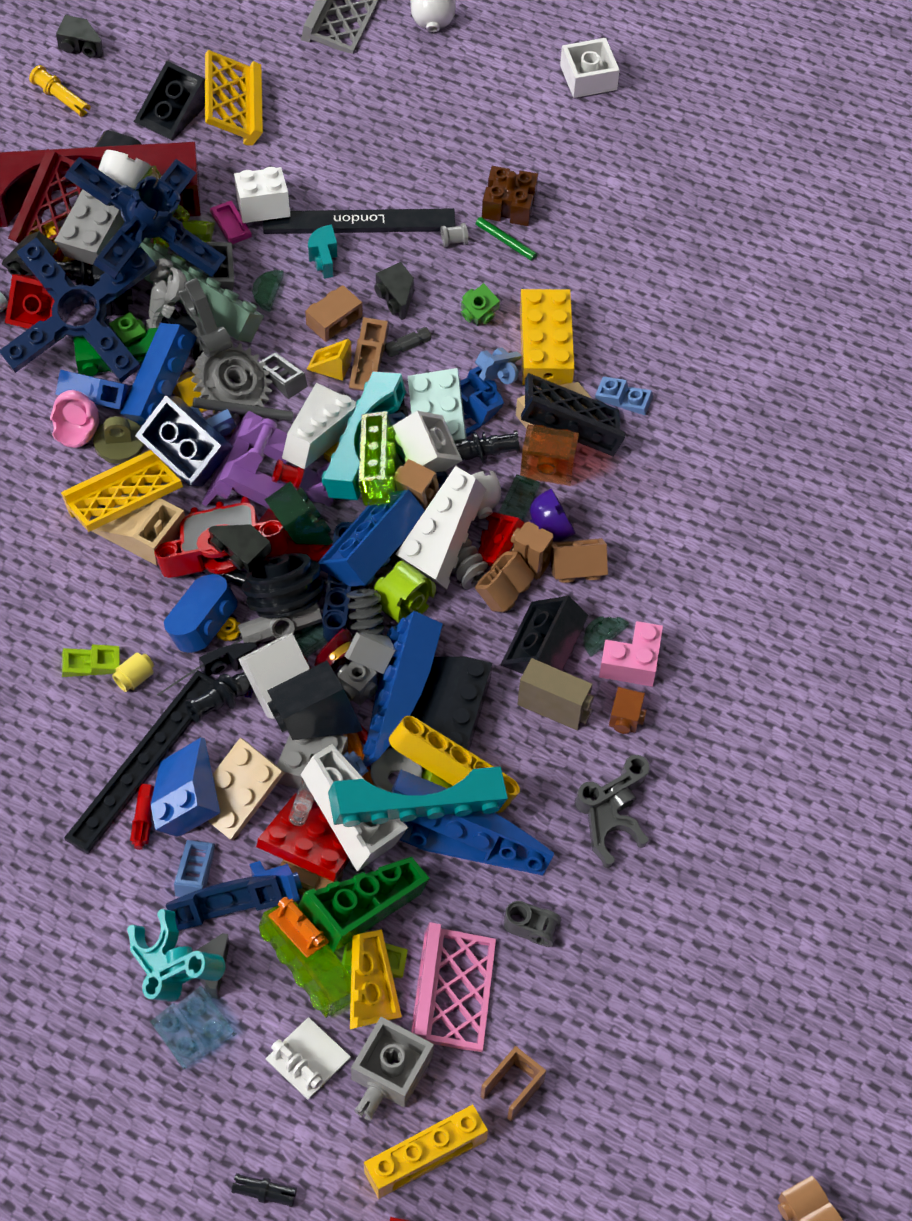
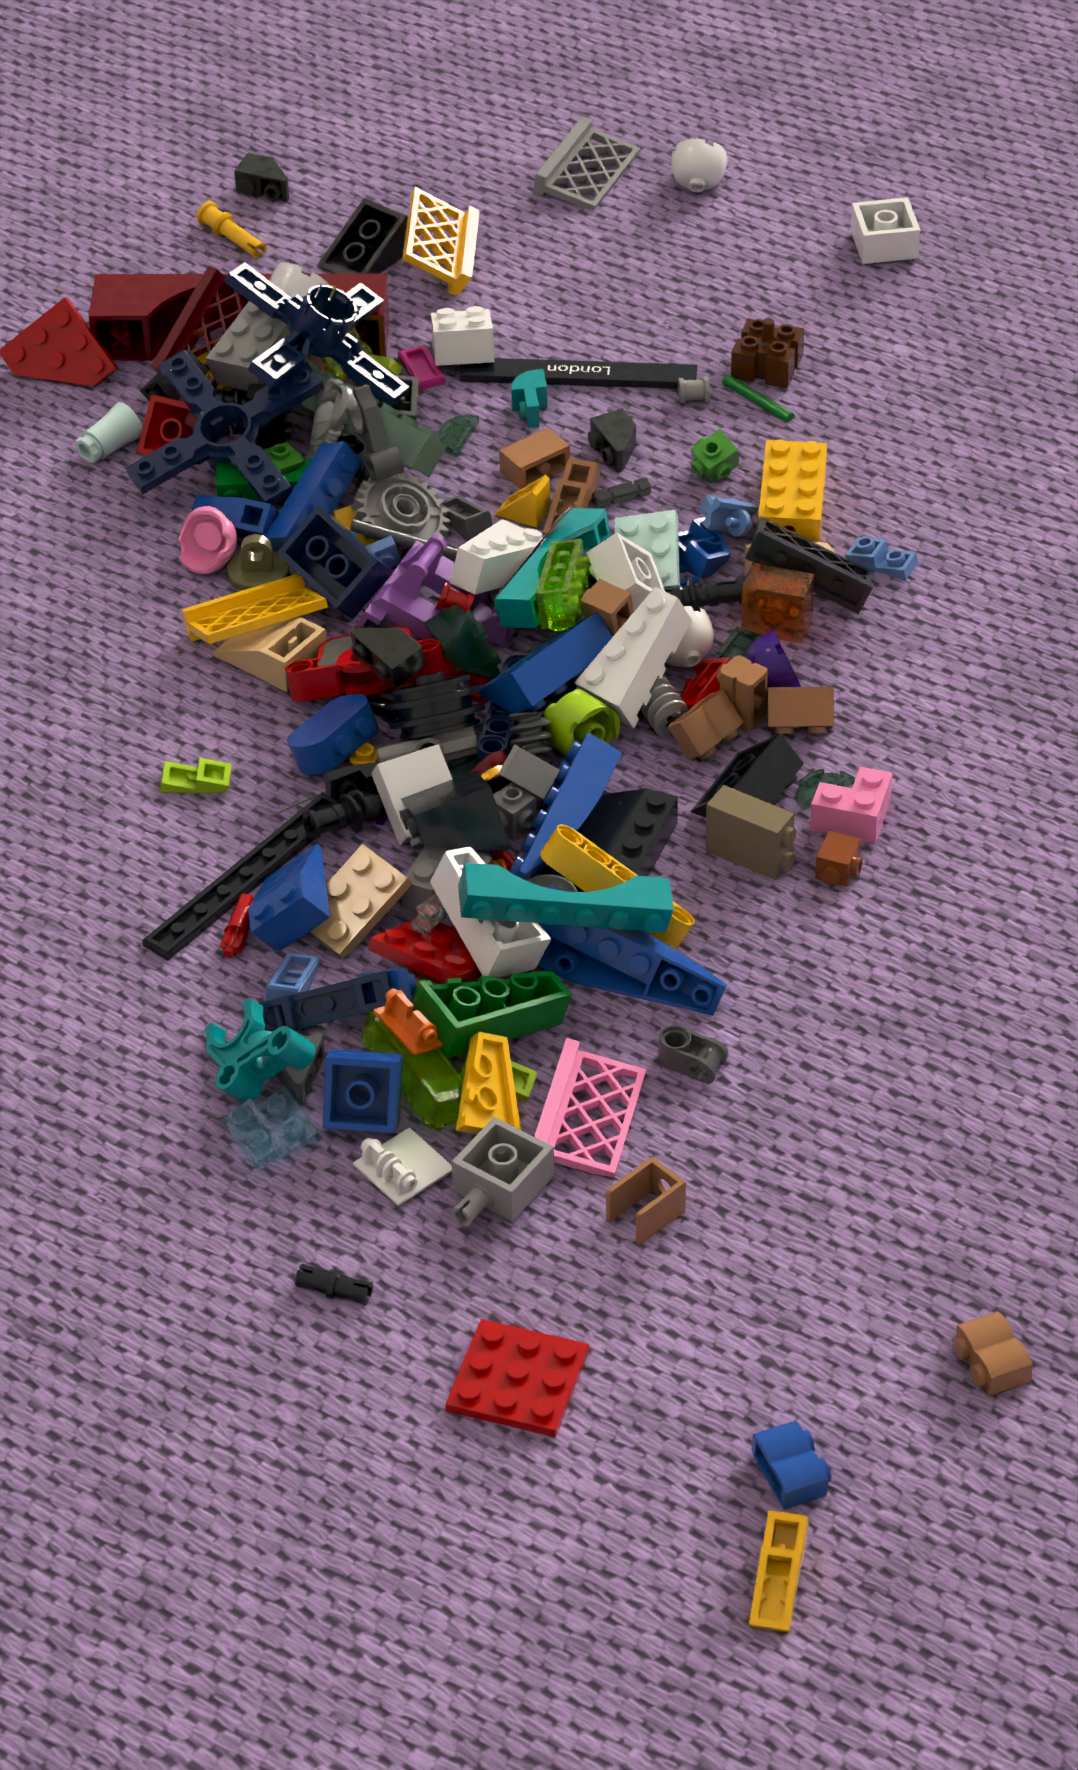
camera: 10 degrees right, 15 degrees down
(133, 671) = (245, 788): light yellow brick -> none
(267, 995) = (362, 1091): none -> blue brick
(332, 443) = (532, 552): none -> sticker
(425, 1151) = (531, 1256): yellow brick -> none
(609, 801) = (803, 945): dark grey piece -> none

